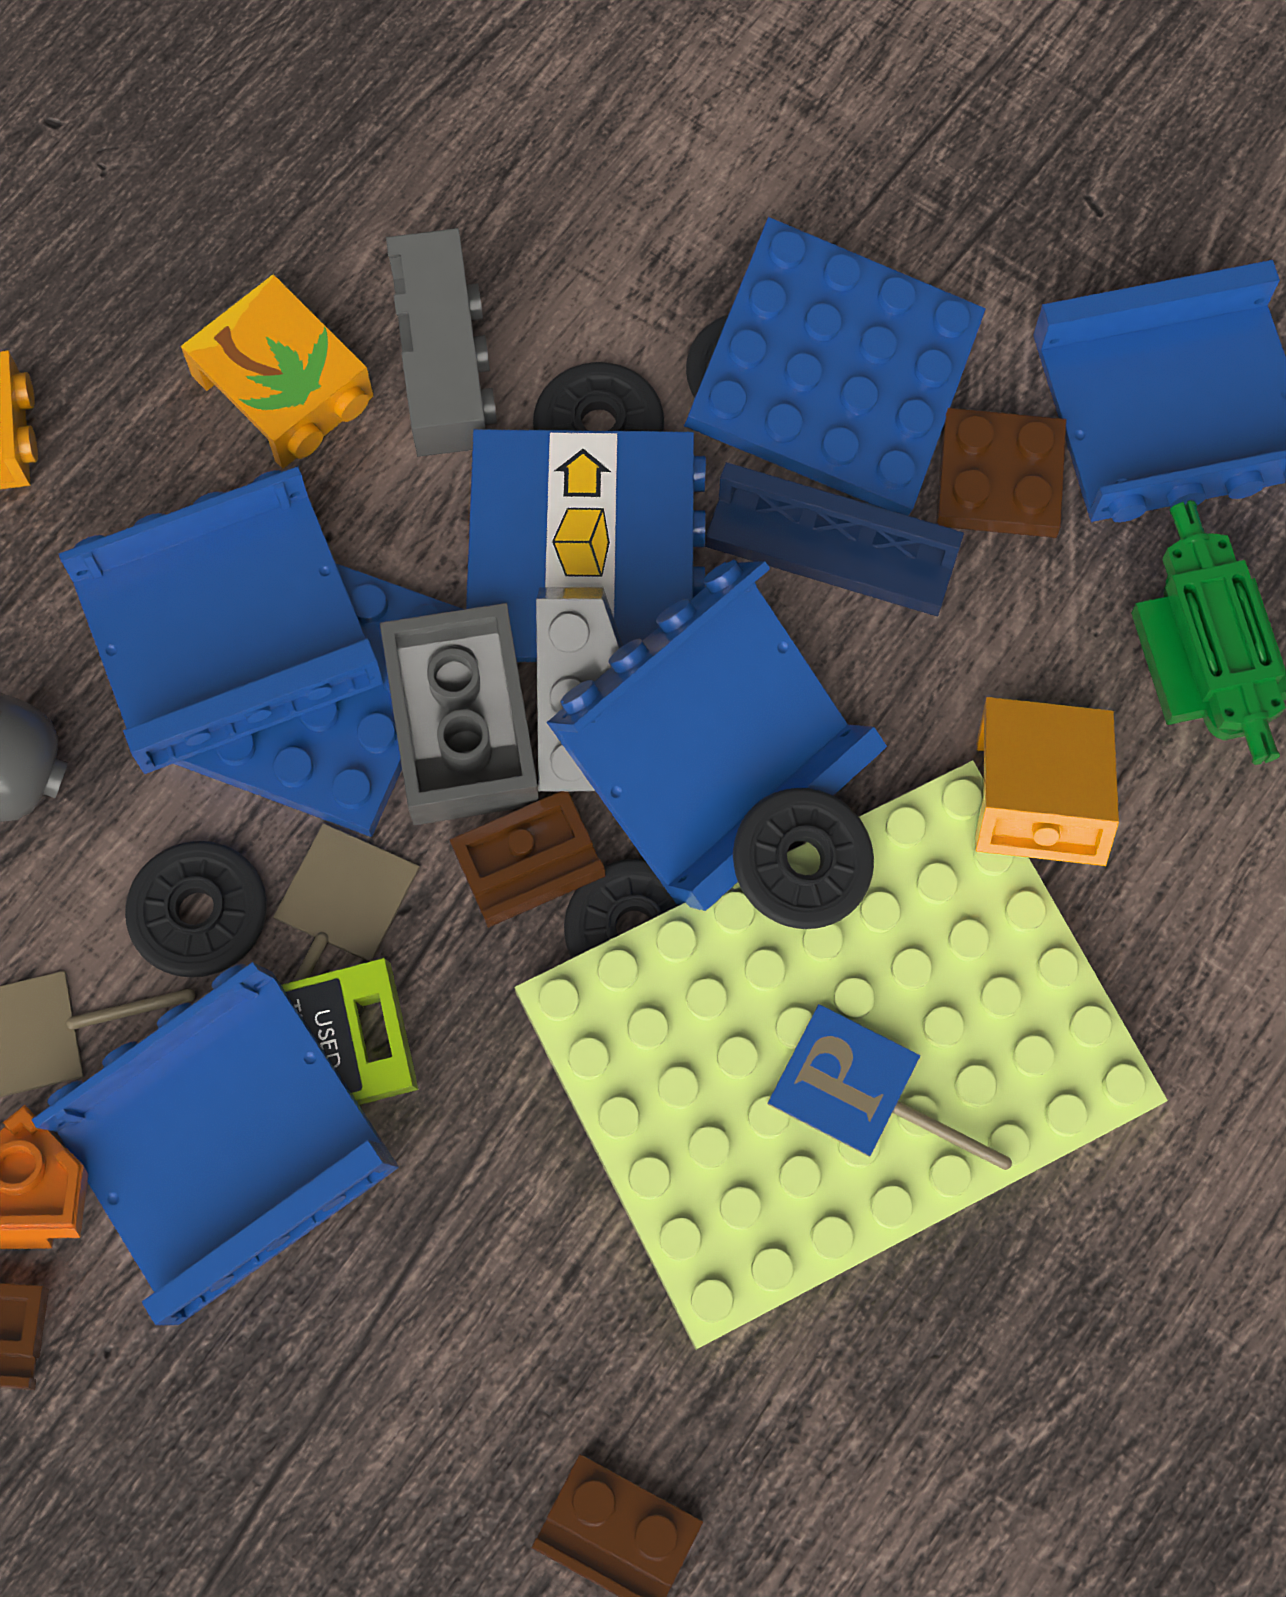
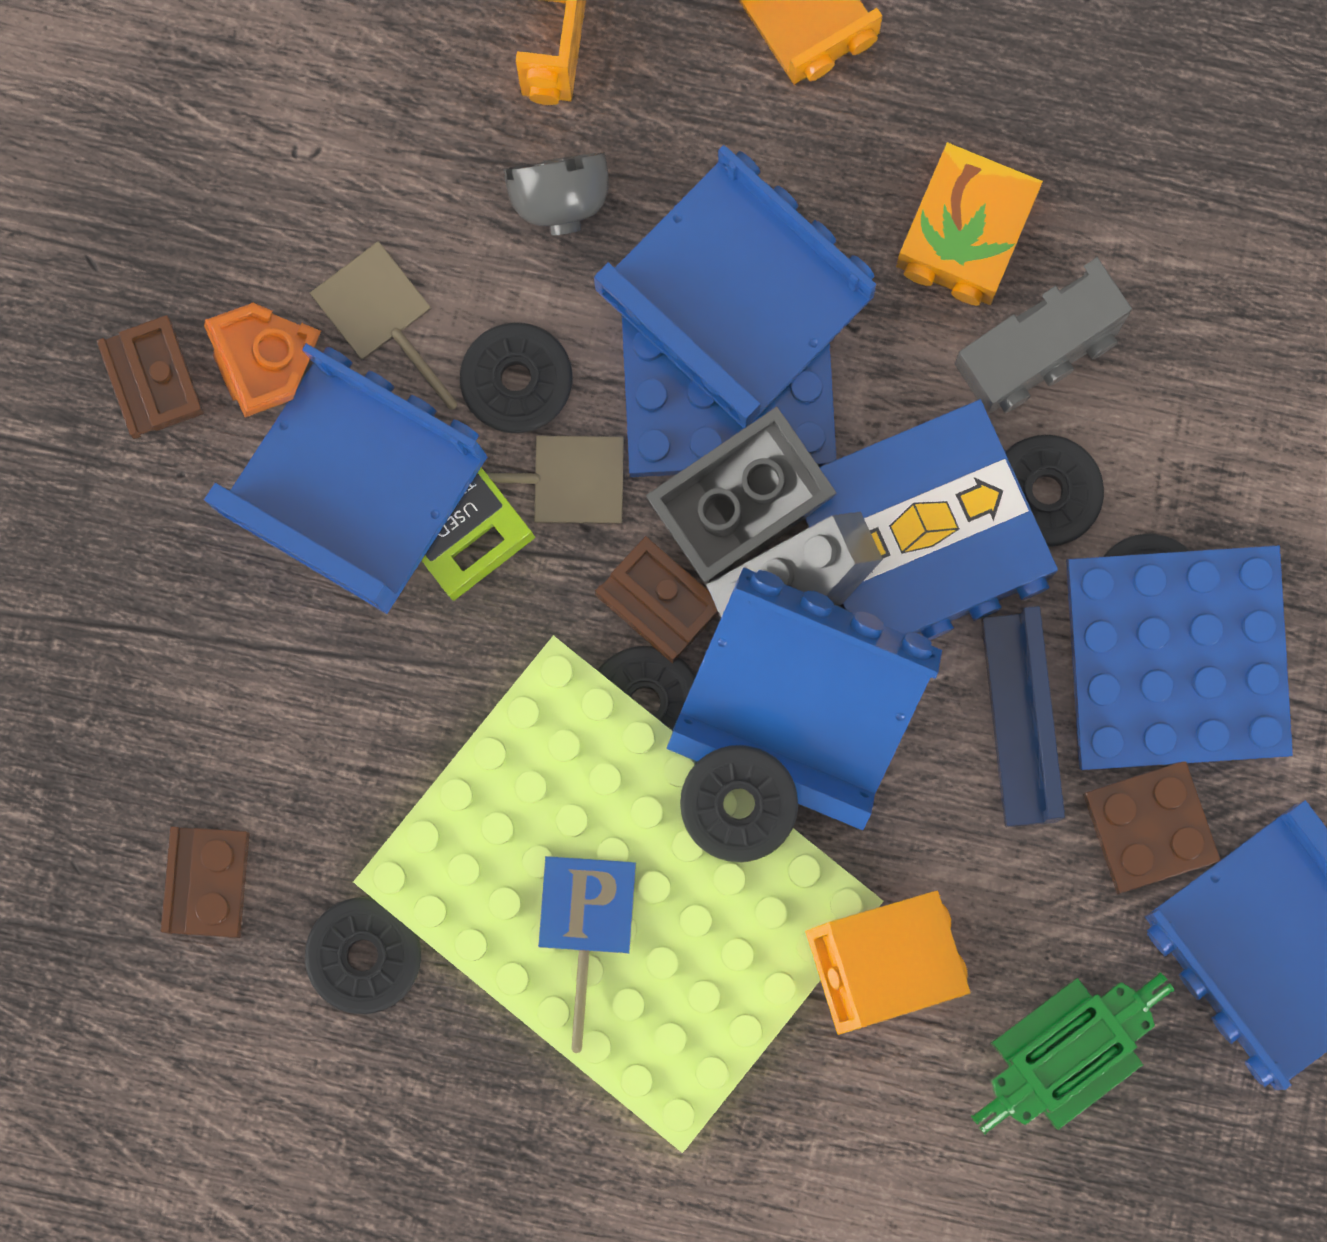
camera: 70 degrees right, 10 degrees up
(784, 1422) = (329, 962): none -> black wheel

